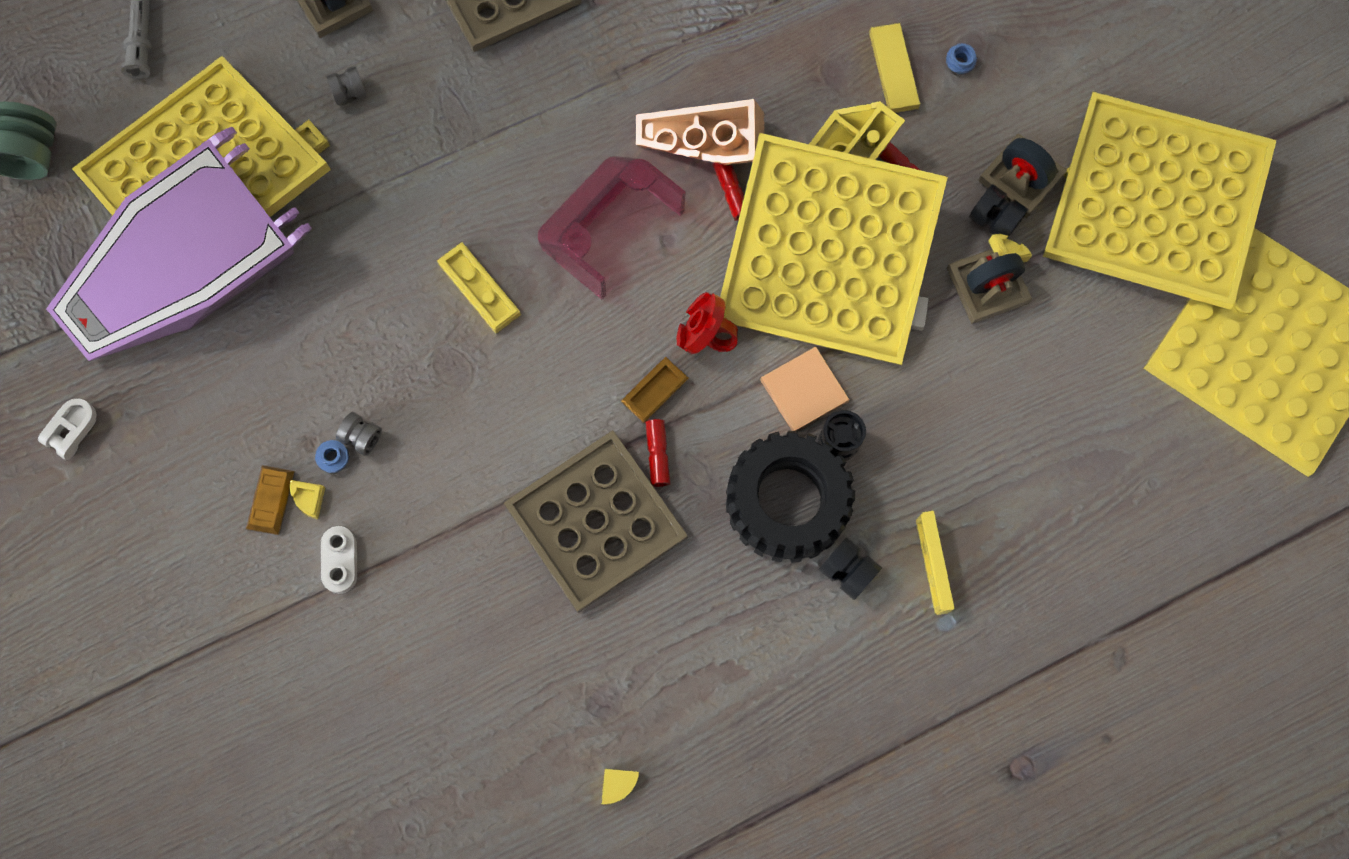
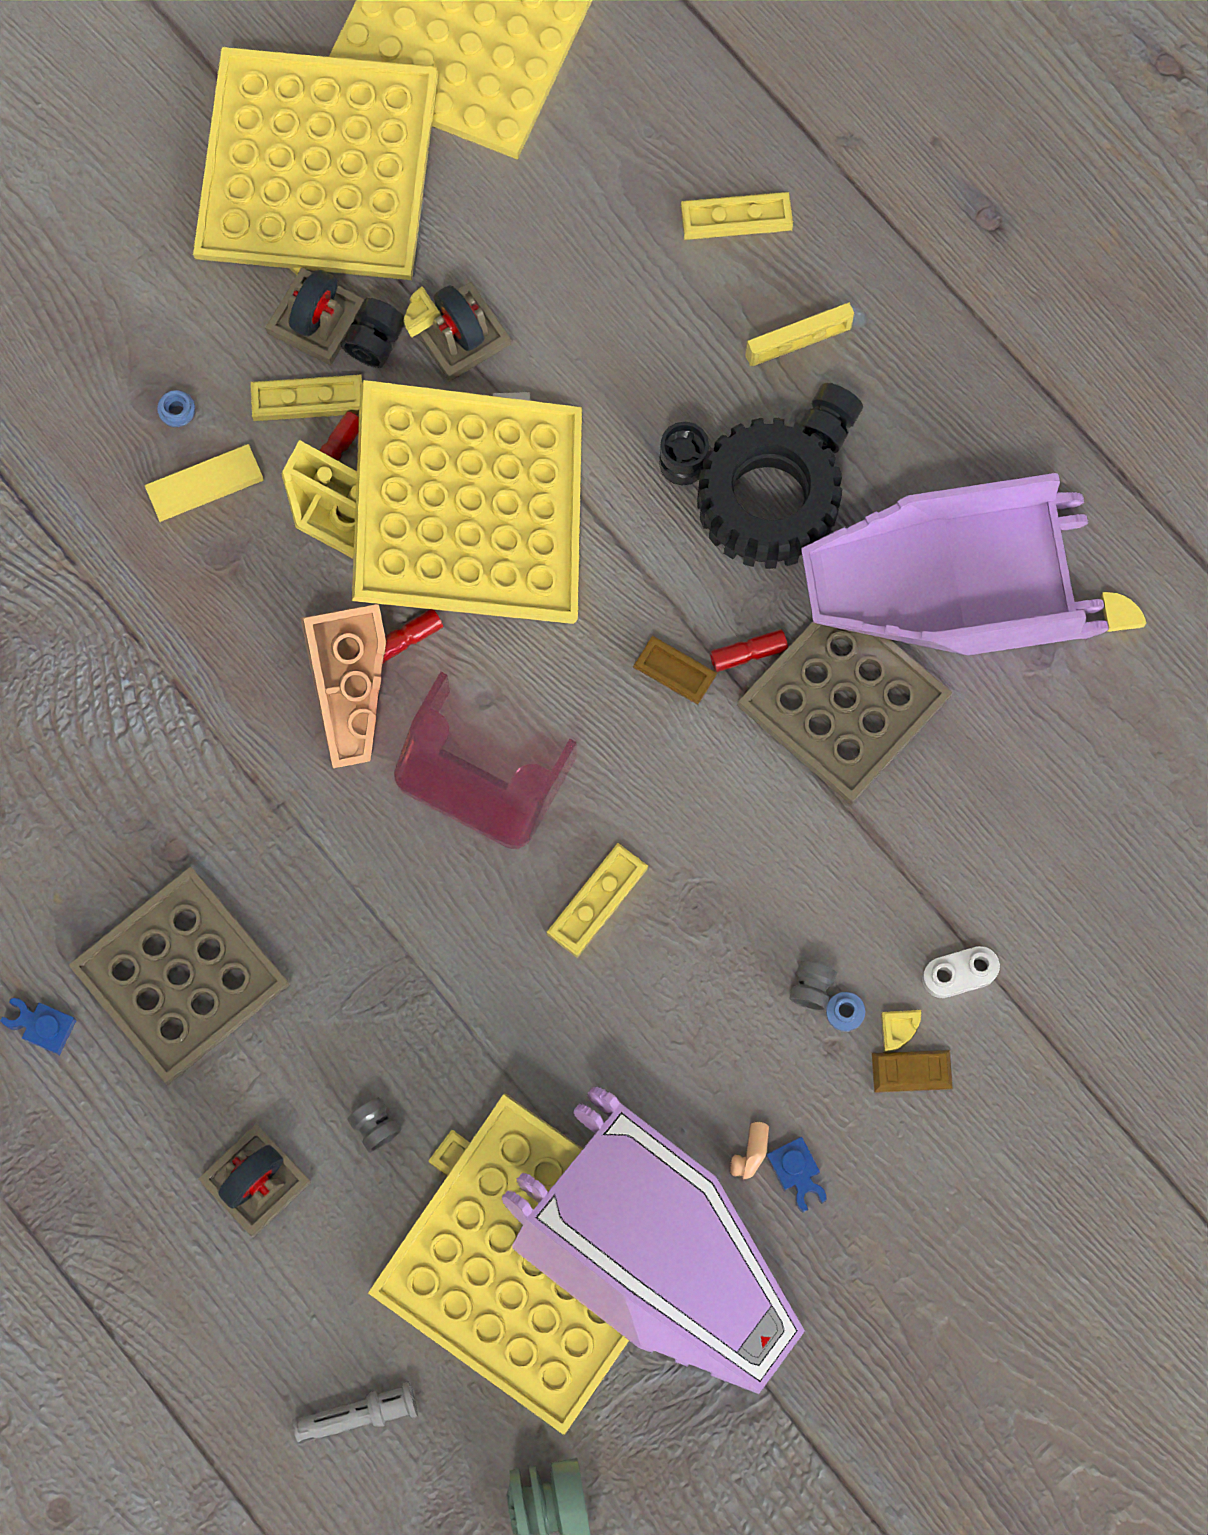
camera: 100 degrees left, 0 degrees up
(77, 417) = (875, 1326): white plate -> none
(219, 388) = (795, 1168): none -> blue plate
(241, 359) = (755, 1152): none -> light nougat arm
(681, 637) = (956, 570): none -> lavender windscreen
(704, 323) = (590, 626): red tile -> none
(804, 389) = (634, 508): light nougat tile -> none
(954, 154) = (305, 397): none -> light yellow tile
(1060, 539) = (736, 215): none -> light yellow tile

